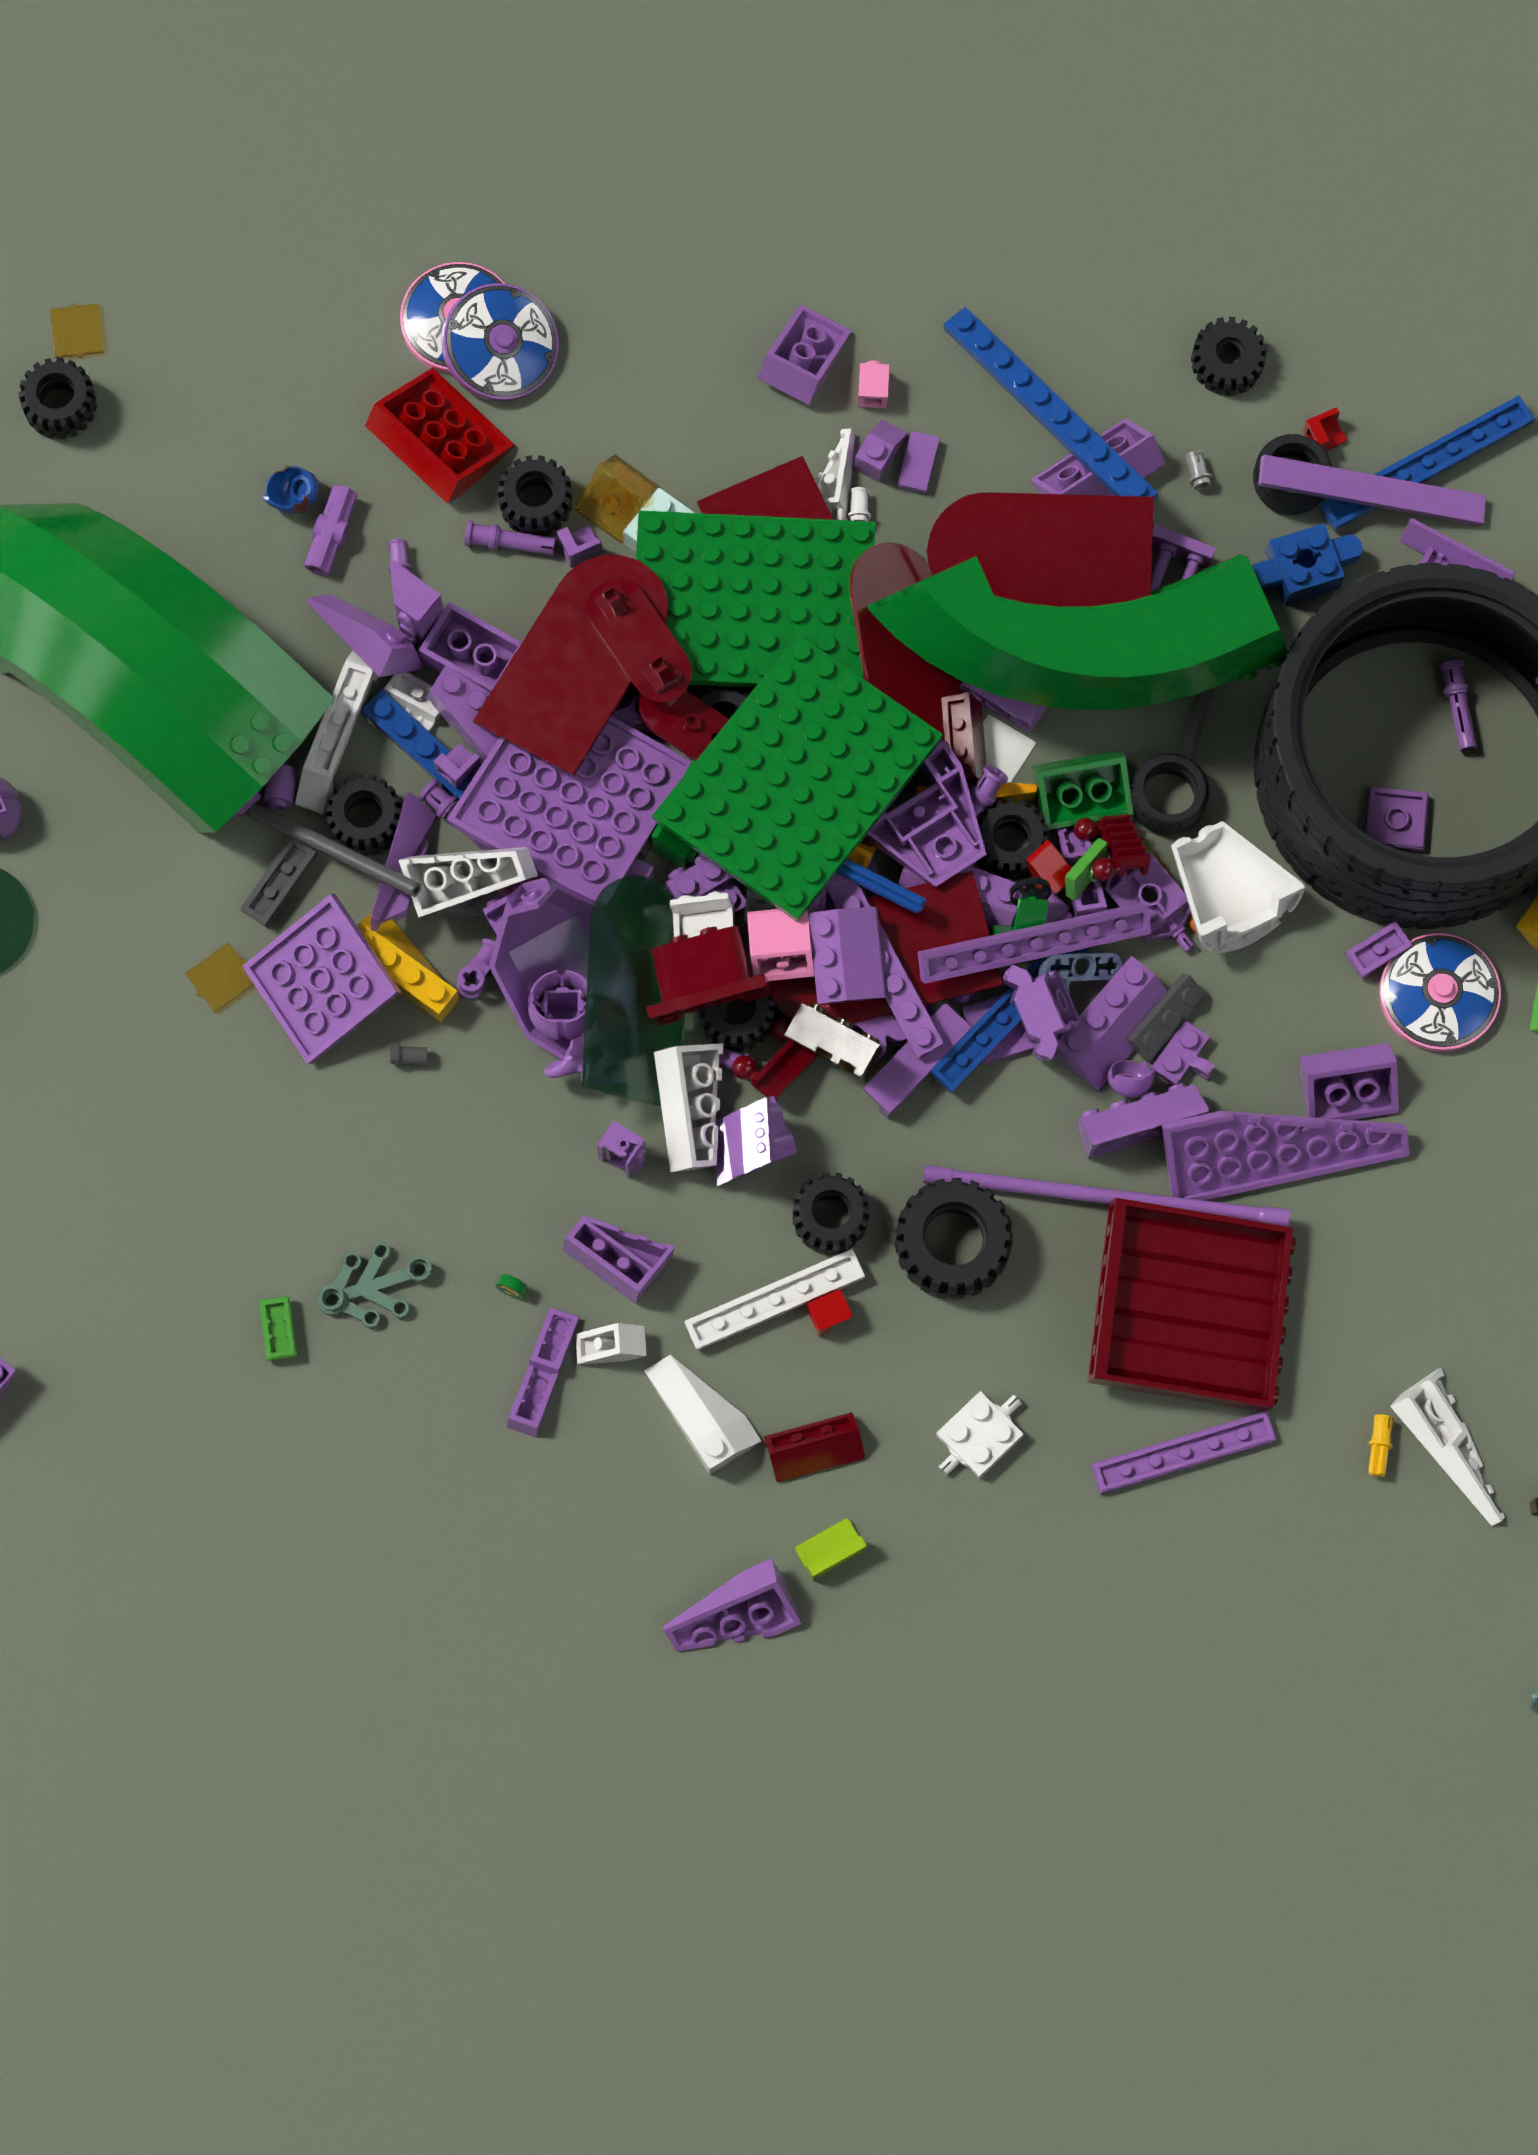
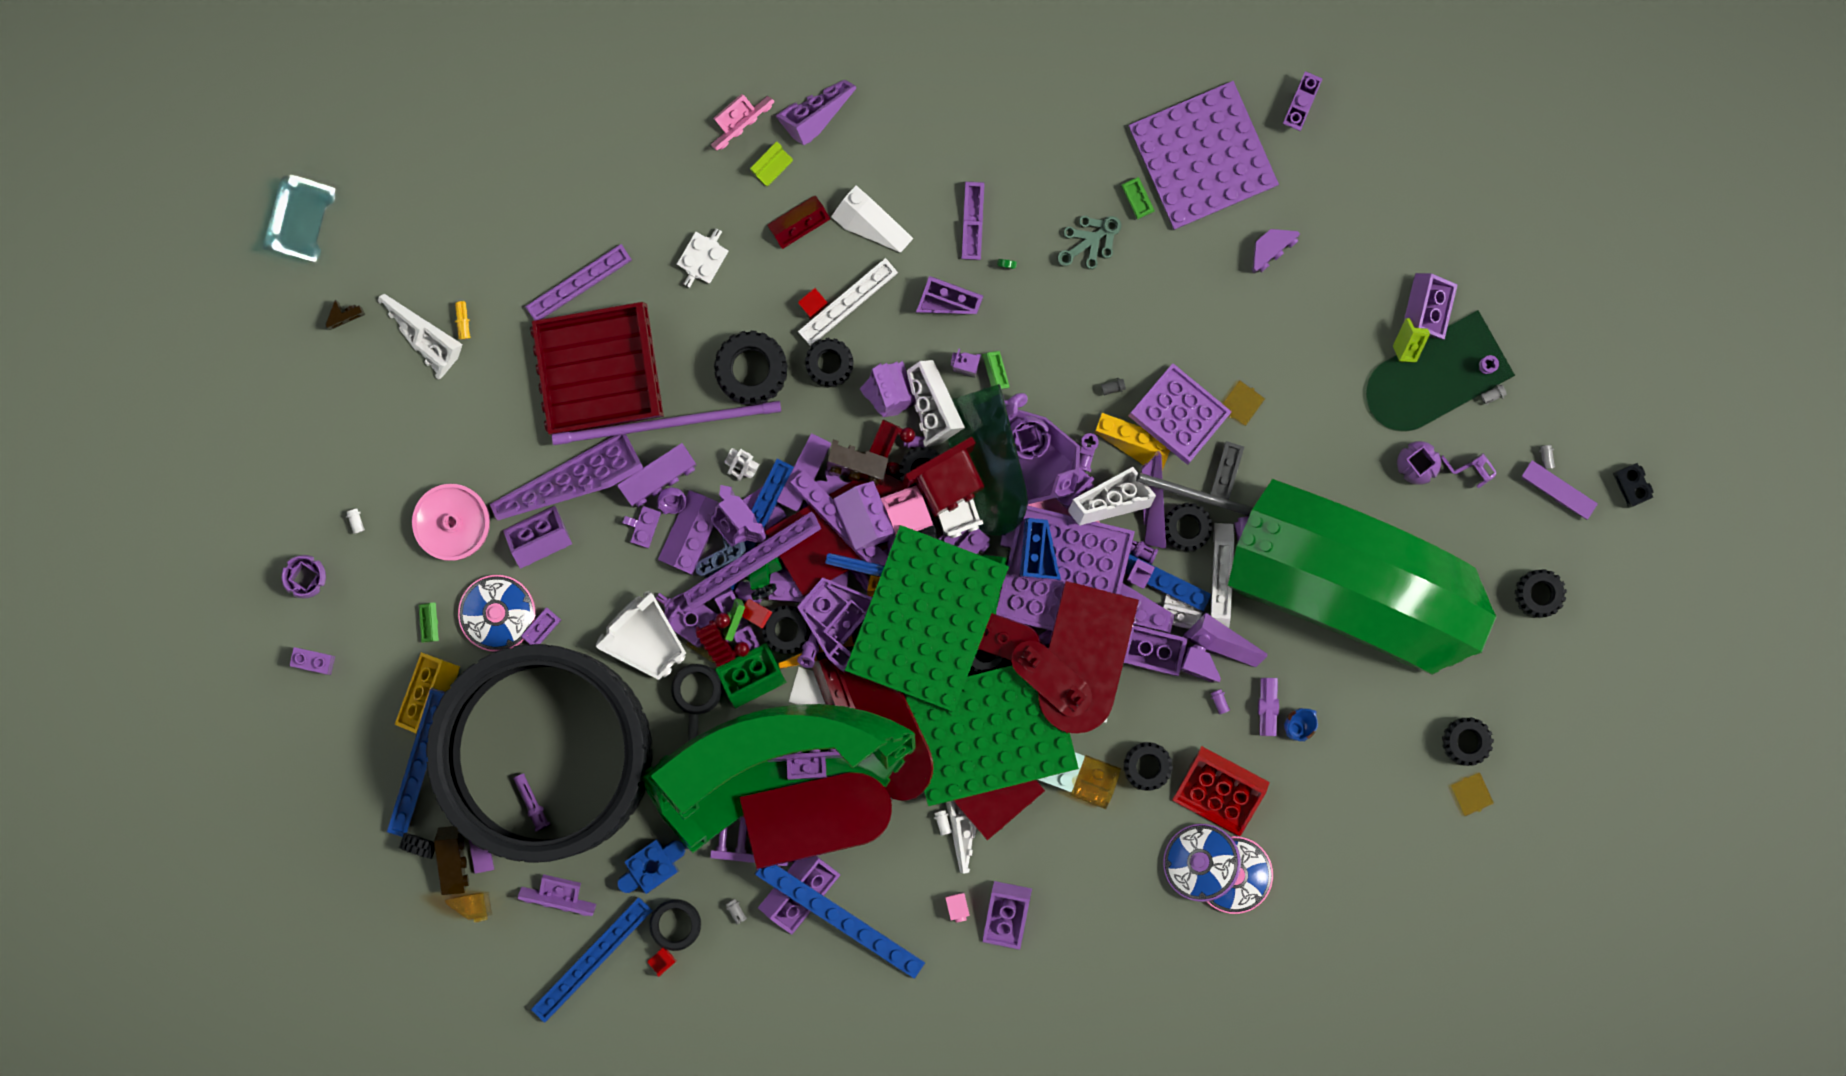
camera: 165 degrees right, 10 degrees up
(98, 1193) = (1271, 247): none -> medium lavender slope
(154, 1367) = (1203, 155): none -> medium lavender plate
(495, 537) = (1164, 733): medium lavender pin -> none
(578, 545) = (1111, 745): medium lavender panel -> none
(579, 1129) = (996, 369): none -> bright green plate
(602, 826) = (1037, 551): none -> blue wedge
(611, 1344) = (937, 246): white slope -> none
(862, 1635) = (738, 116): none -> bright pink bracket
(879, 450) = (940, 865): medium lavender slope -> none
(918, 462) = (914, 864): medium lavender tile -> none
(1009, 1101) = (741, 461): none -> white piece
(1166, 1017) = (660, 546): dark grey plate -> none
(1224, 375) = (747, 983): black tyre -> none
(1371, 490) = (621, 925): medium lavender tile -> none
(1397, 818) = (552, 717): medium lavender tile -> none
(1476, 1140) = (450, 522): none -> bright pink dish

